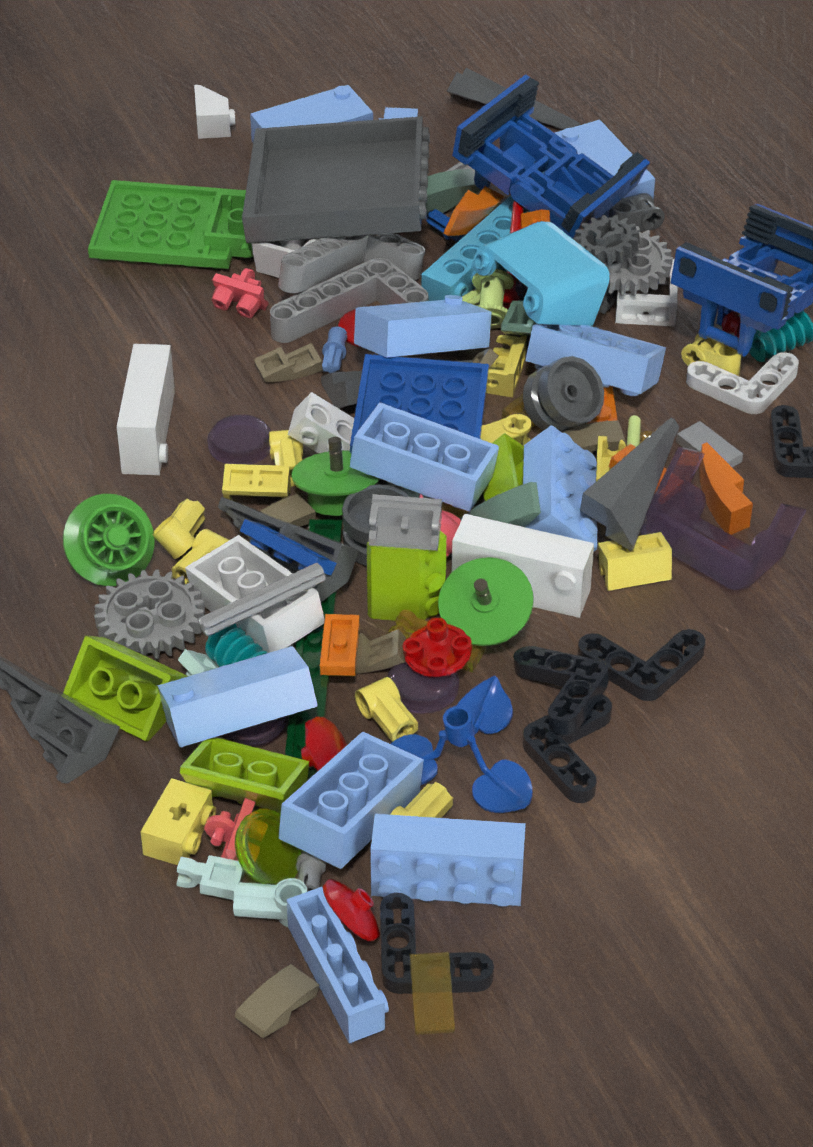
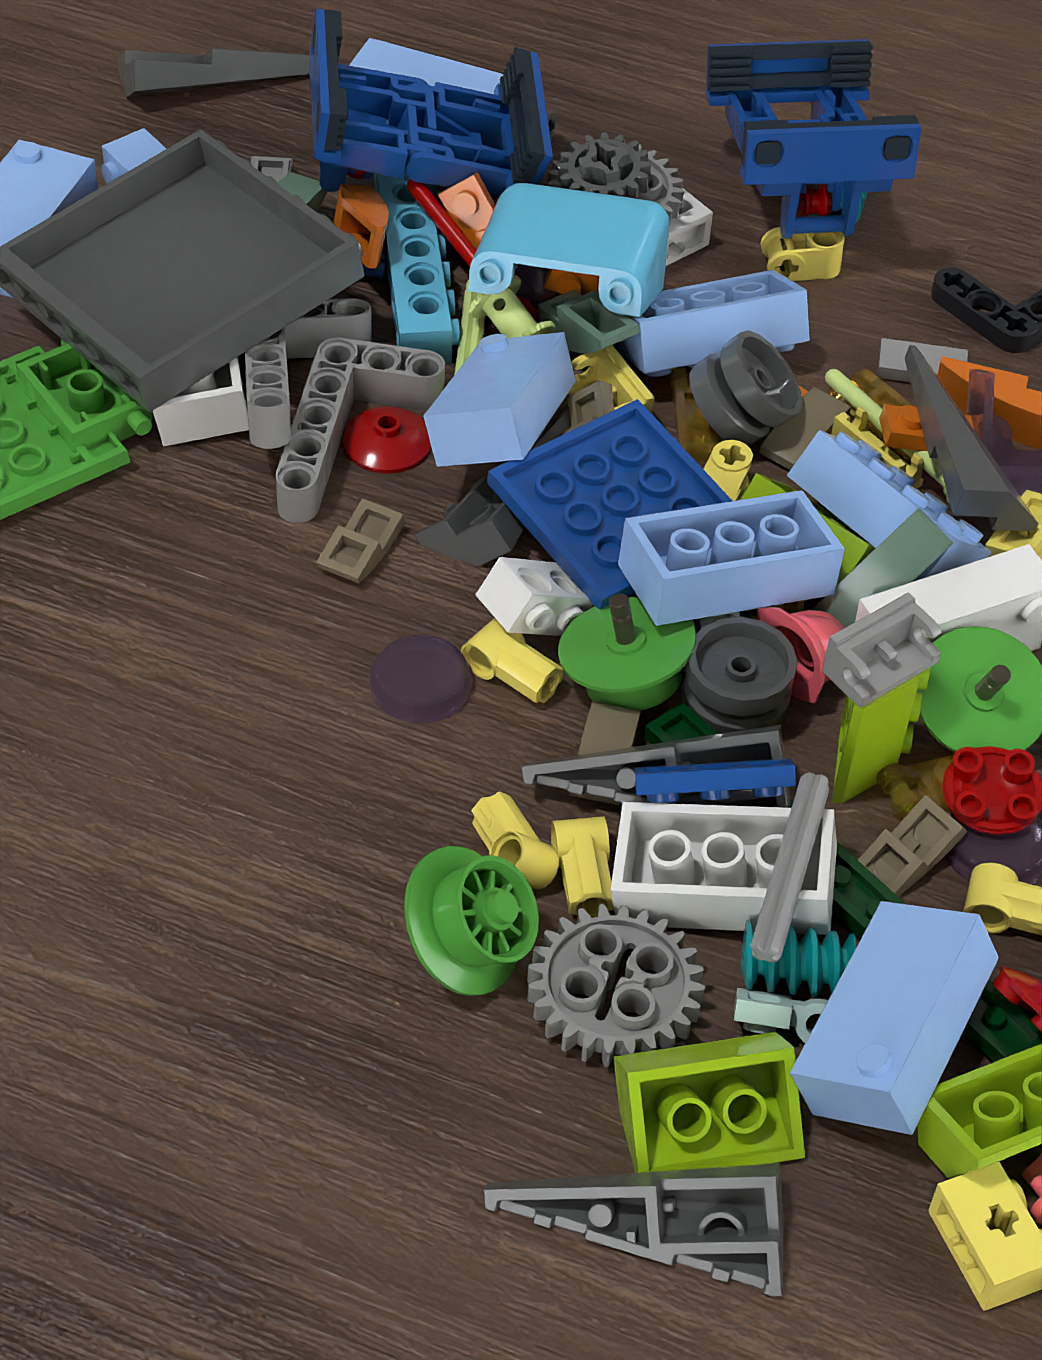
camera: 45 degrees left, 5 degrees up
(146, 410) = (290, 710): white brick -> none
(240, 289) = (195, 479): coral hips -> none
(256, 480) = (531, 720): light yellow hinge -> none
(334, 349) = (397, 491): medium blue axle -> none
(340, 645) = (890, 860): orange plate -> none
(708, 379) = (873, 274): white beam -> none

